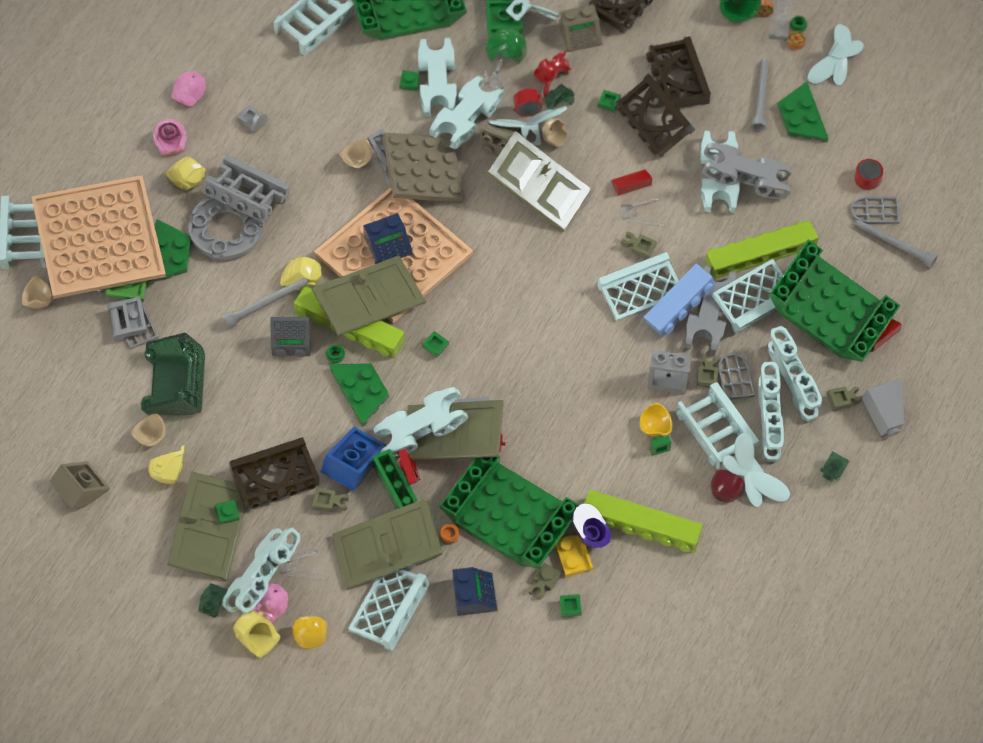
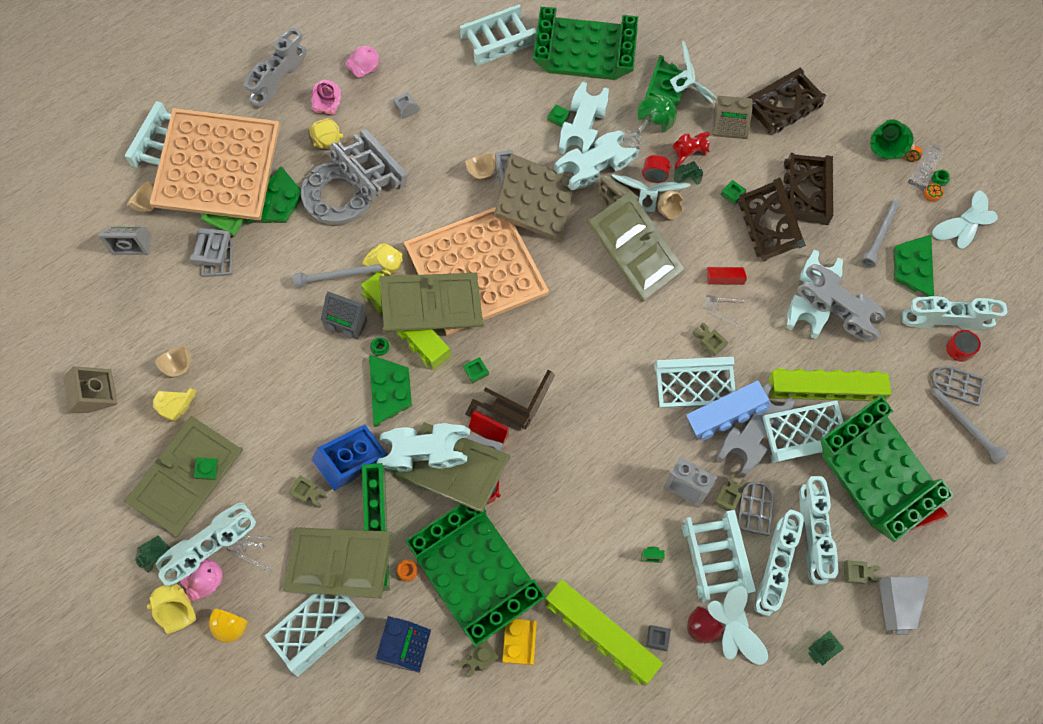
camera: 20 degrees right, 5 degrees up
(43, 338) = (126, 240): none -> light grey slope
(102, 133) = (269, 73): none -> light grey piece
(177, 376) = (227, 318): clear green windscreen -> none
(275, 491) = (247, 427): dark brown fence -> none
(387, 238) = (472, 253): dark blue slope -> none
(408, 466) = (394, 490): red wing -> none
(471, 388) = (488, 428): none -> red slope
(482, 365) = (511, 410): none -> dark brown piece
(570, 605) = (493, 699): green plate -> none
(591, 526) = (547, 622): dark purple piece -> none
(656, 421) = (657, 528): yellow helmet -> none
(691, 510) = (658, 638): none -> dark grey tile
(862, 146) = (966, 314): none -> light aqua piece

